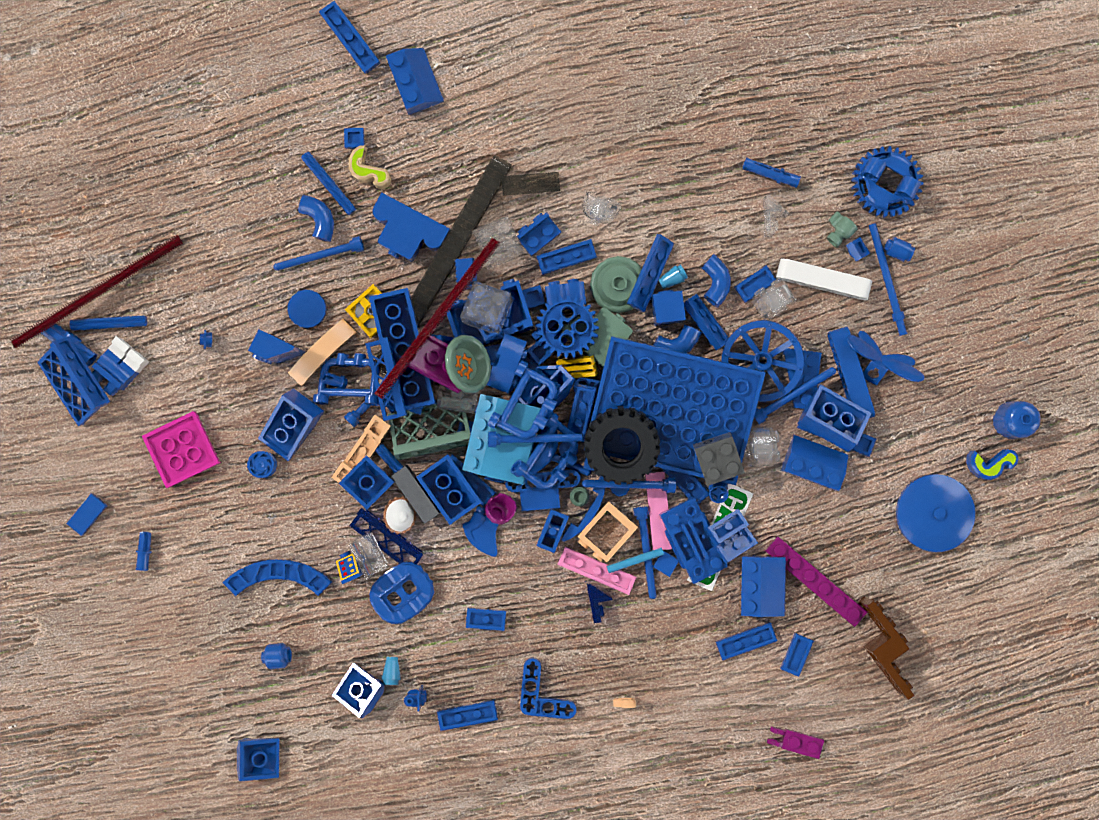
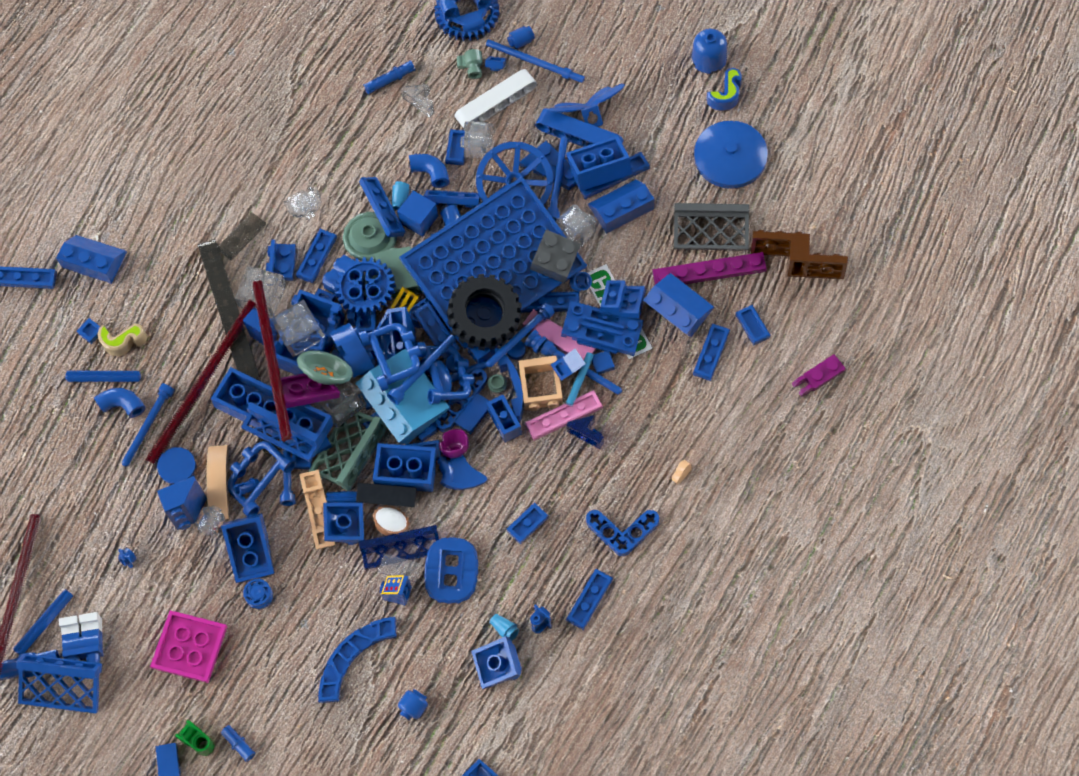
camera: 45 degrees left, 20 degrees down
(119, 516) = (193, 737): none -> green piece
(284, 377) = (210, 520): none -> clear head
(362, 312) = (220, 424): yellow piece -> none
(375, 271) = (190, 399): none -> dark red axle
(406, 229) = (188, 345): blue brick -> none
(637, 545) = (568, 364): none -> brick
(638, 498) = (535, 341): none -> blue wheel
(868, 542) = (714, 211): none -> dark grey fence

